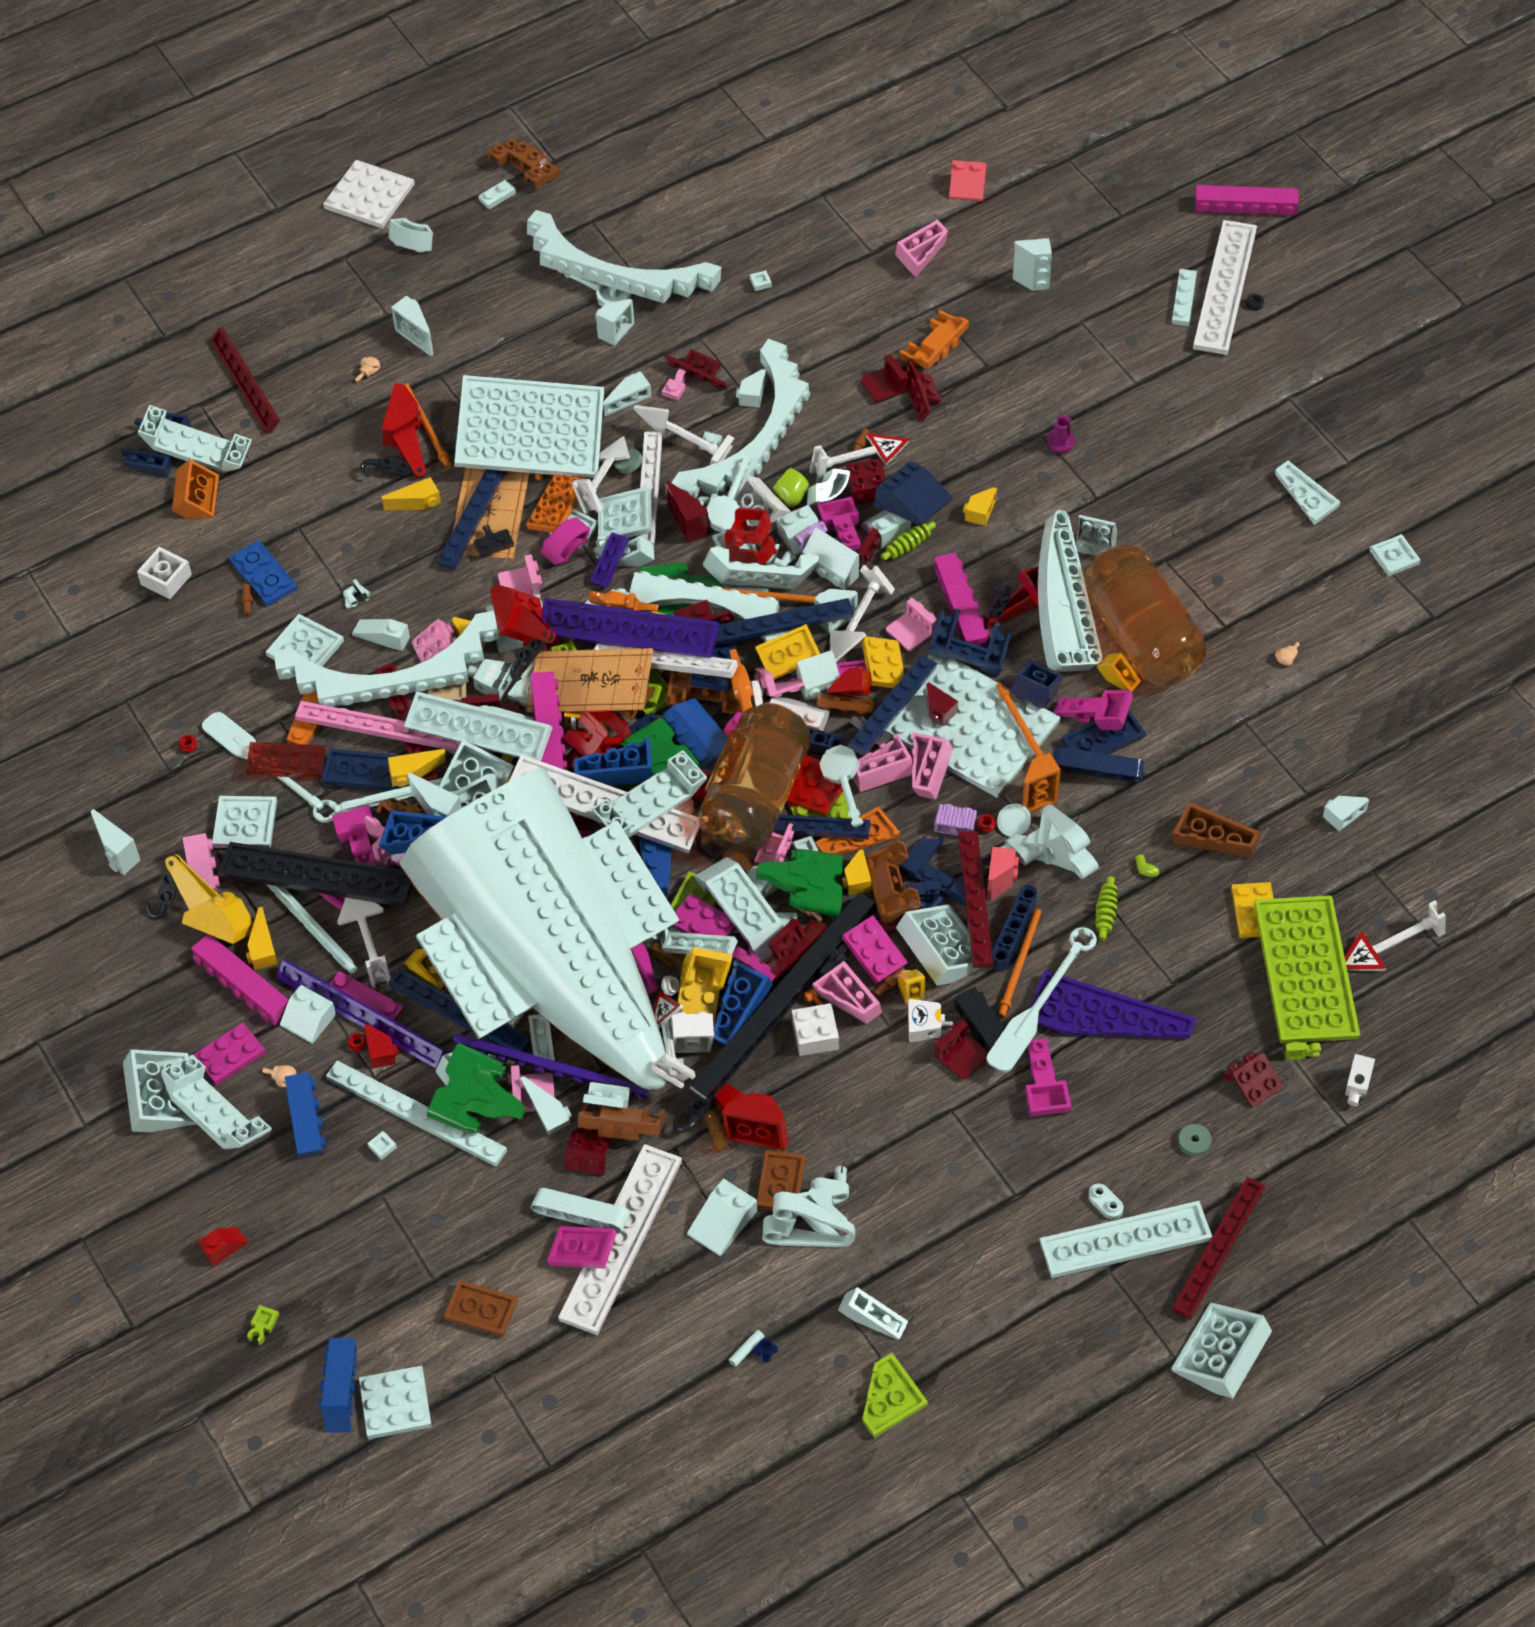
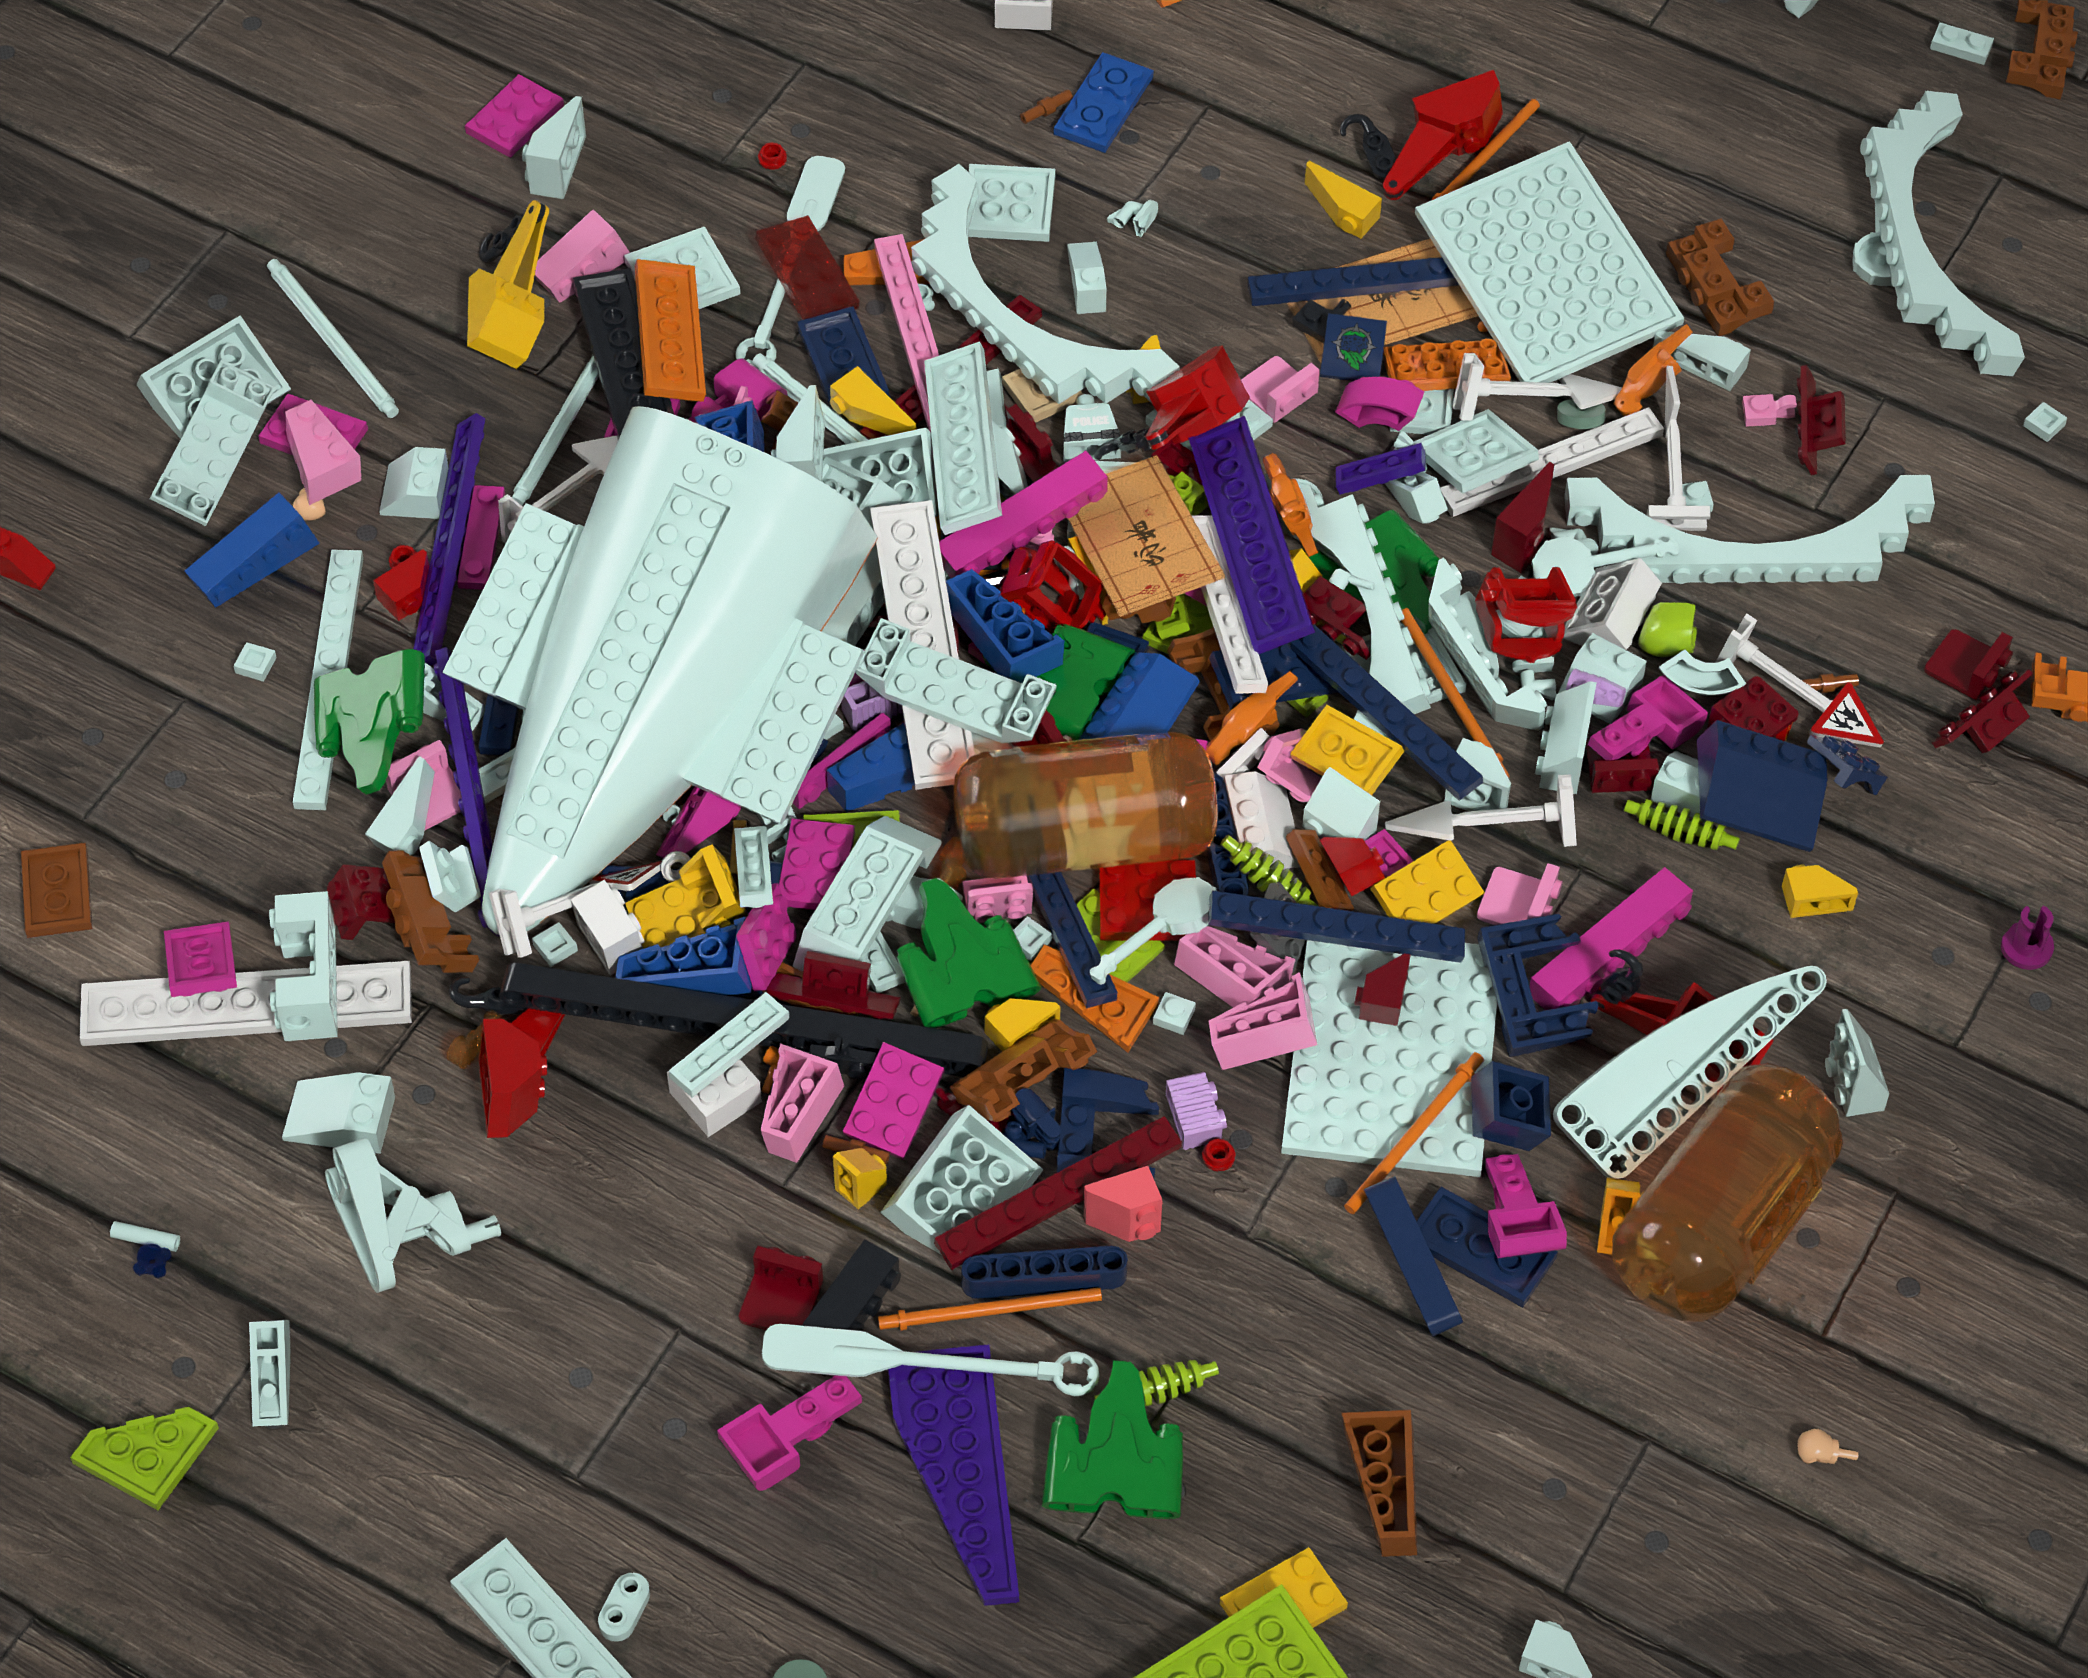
camera: 60 degrees right, 0 degrees up
(60, 858) = (514, 115): none -> dark pink plate
(164, 1016) = (332, 338): none -> light aqua piece
(240, 978) = (429, 385): dark pink brick -> none
(258, 1048) = (321, 452): none -> bright pink wedge
(260, 944) = (499, 381): yellow slope -> none
(293, 838) = (669, 330): none -> orange plate
(368, 367) = (1534, 48): light nougat piece -> none
(412, 324) = (1641, 54): light aqua slope -> none
(433, 640) = (1112, 333): bright pink bracket -> none
(520, 536) = (1352, 347): none -> dark blue slope
(579, 1210) = (257, 938): light aqua beam -> none
(580, 368) = (1712, 283): none -> dark orange bracket
(614, 320) = (1823, 278): light aqua slope -> none
(626, 421) = (1649, 373): none -> orange animal
(654, 1190) = (306, 1004): none -> light aqua plate
(682, 602) = (1342, 578): none -> light aqua hand
(752, 389) = (1827, 503): light aqua slope -> none
(779, 1174) = (439, 1156): dark orange plate -> none
(805, 1004) = (728, 1044): none -> light aqua plate
(835, 722) = (1262, 870): none -> lime piece
(889, 805) = (1174, 1013): none -> light aqua plate
(923, 452) = (1851, 764): none -> dark blue piece
(926, 1020) = (810, 1223): white torso -> none
(1013, 819) = (1244, 1188): light aqua piece -> none
(1041, 783) = (1312, 1184): orange slope -> none
(1056, 842) = (1231, 1266): light aqua connector -> none
(1141, 940) = (1120, 1456): none -> green rock
(1145, 868) = (1266, 1410): lime arm -> none

